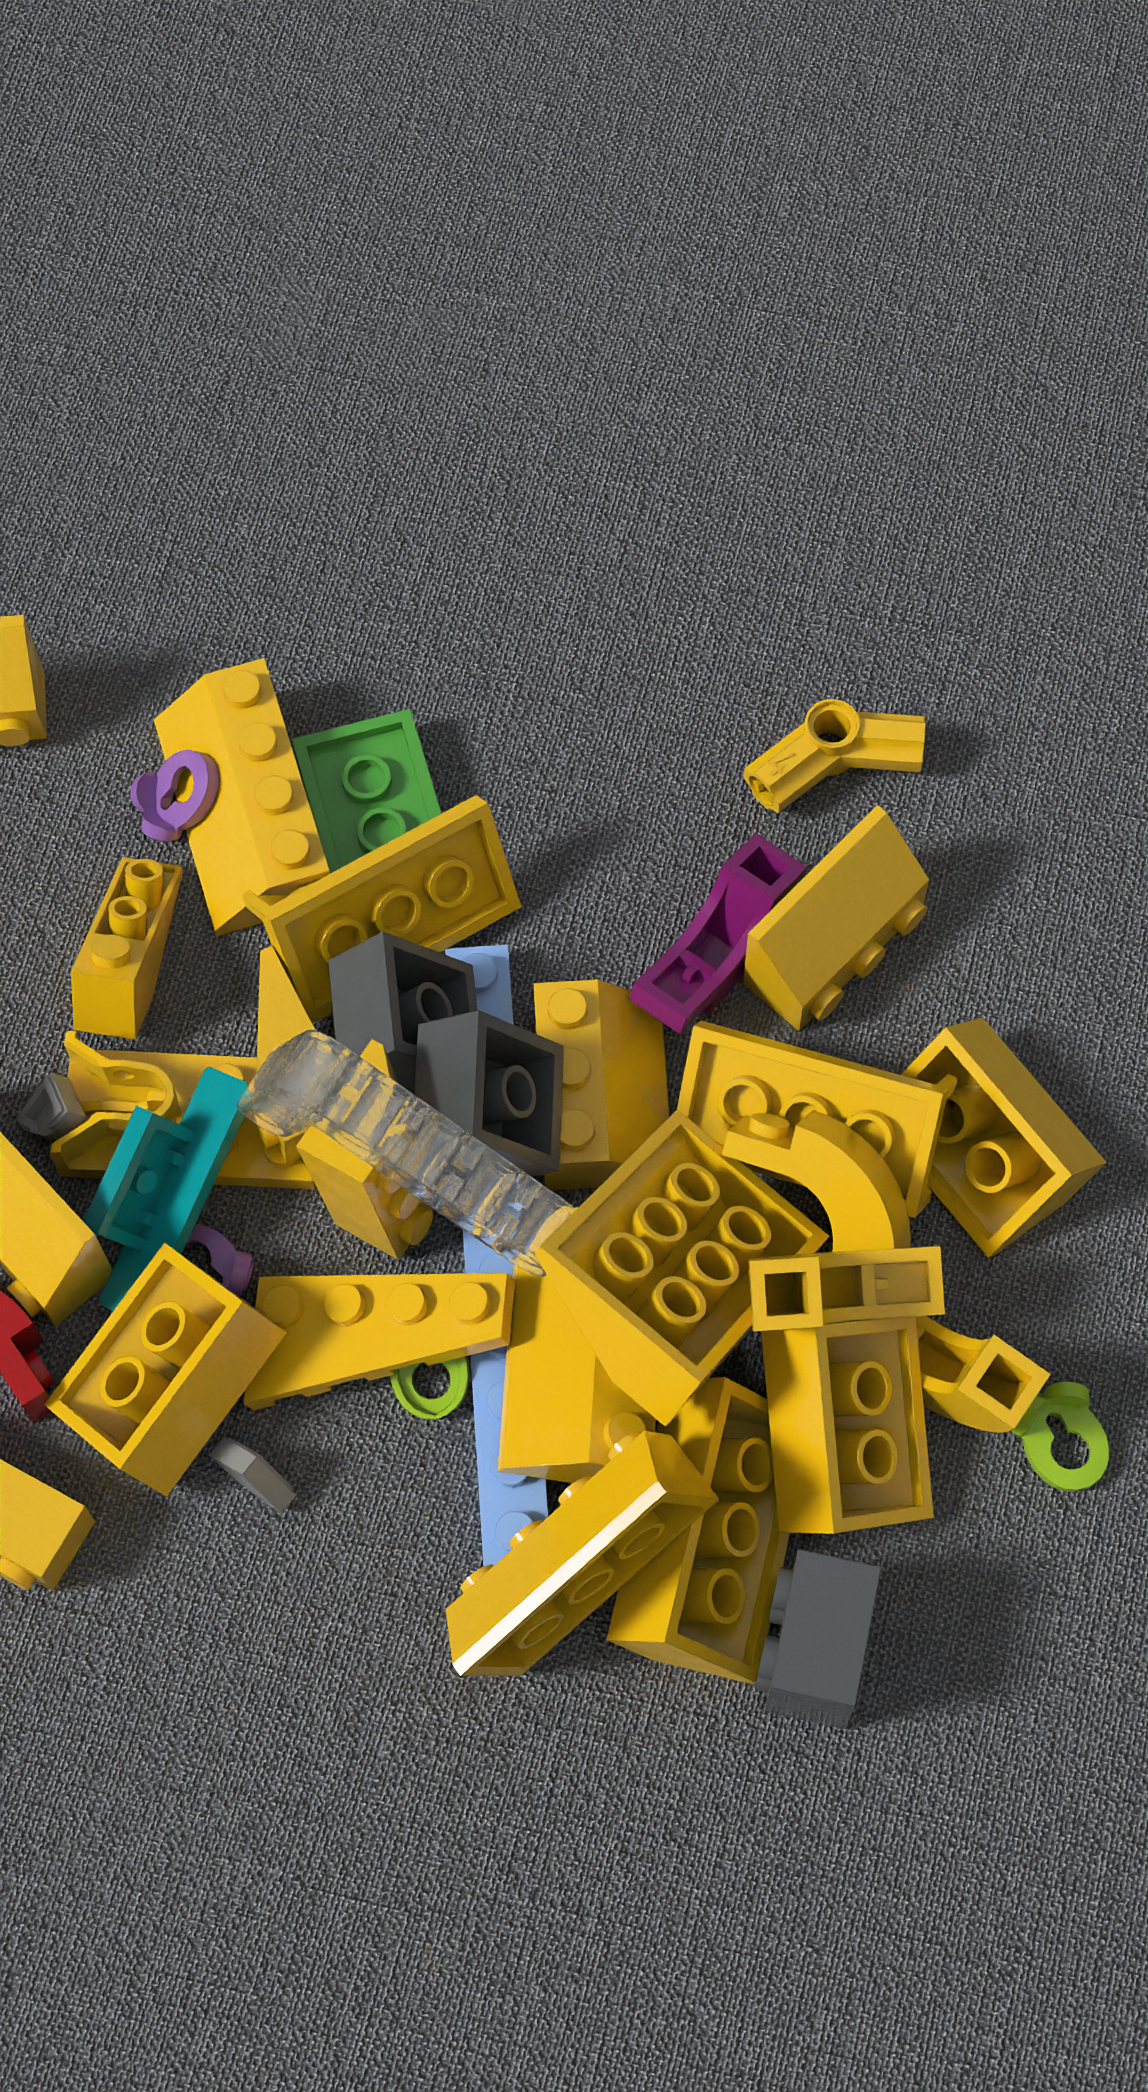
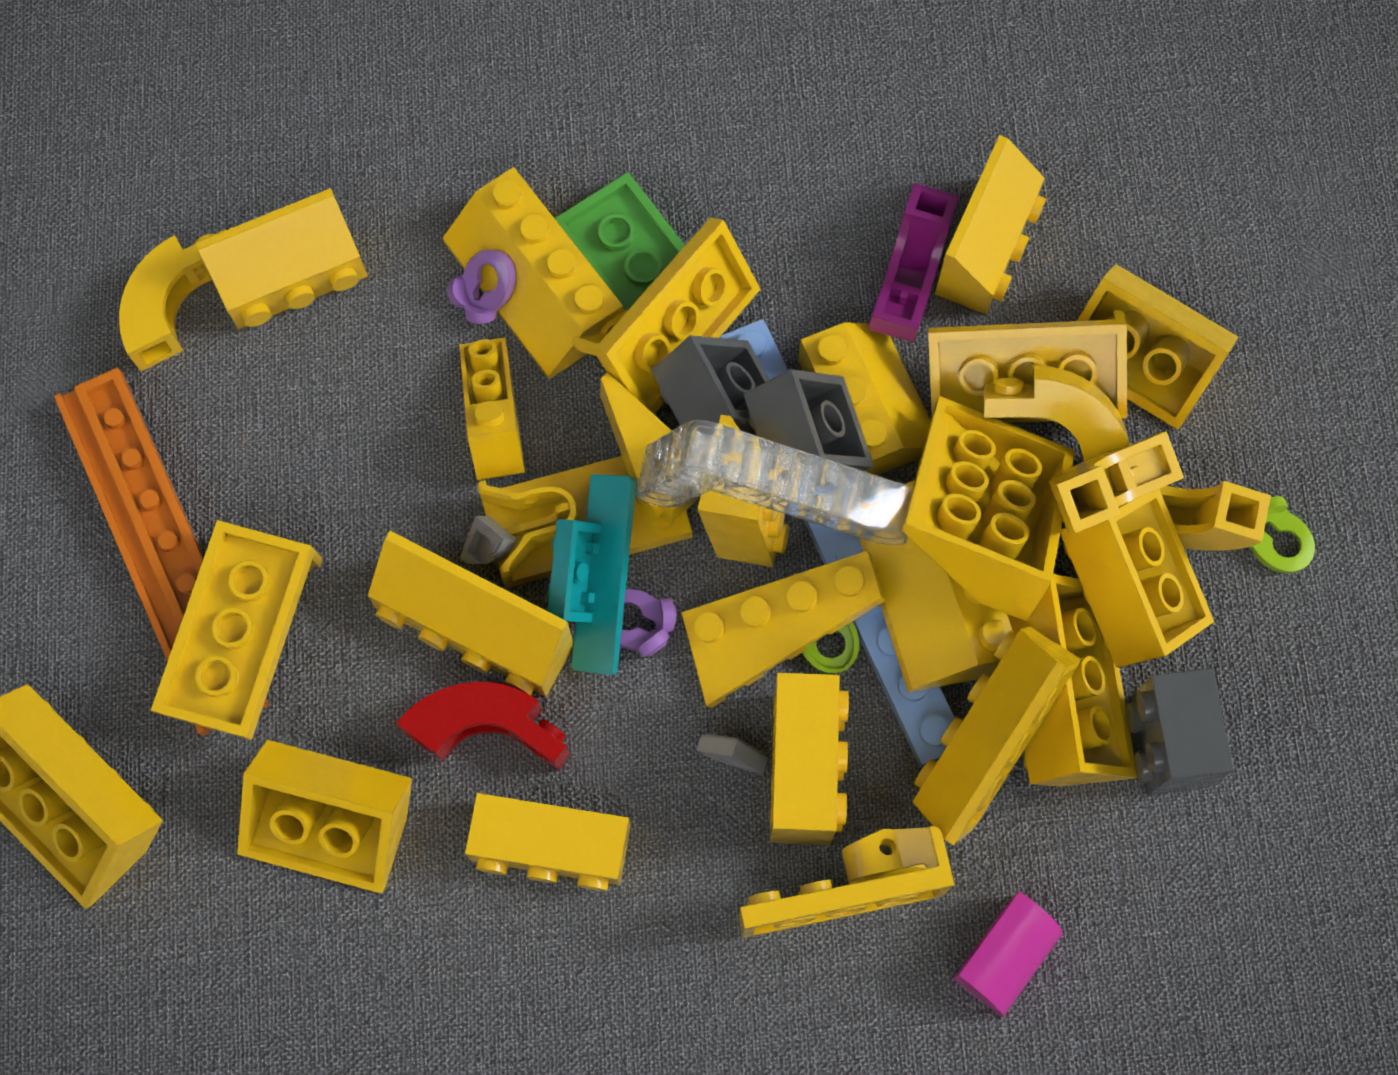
camera: 20 degrees left, 5 degrees up
(164, 1370) = (645, 700): yellow slope -> none
(331, 1510) = (808, 759): none -> yellow brick
(390, 1700) = (876, 881): none -> yellow plate
(498, 1848) = (1009, 954): none -> dark pink brick
(805, 759) = (957, 96): yellow piece -> none

